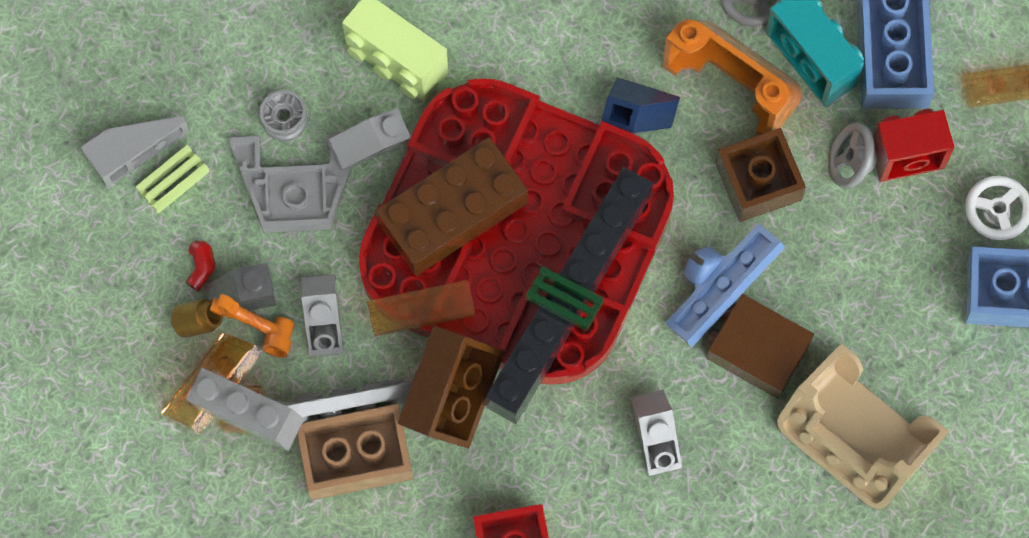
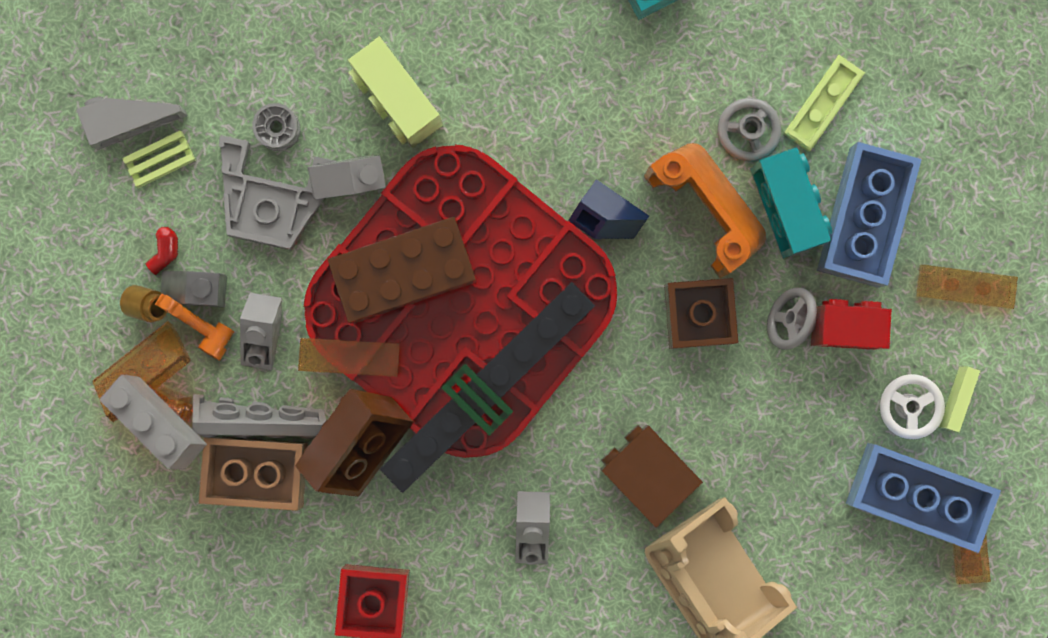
camera: 15 degrees right, 15 degrees up
(721, 282) = (633, 408): medium blue plate -> none

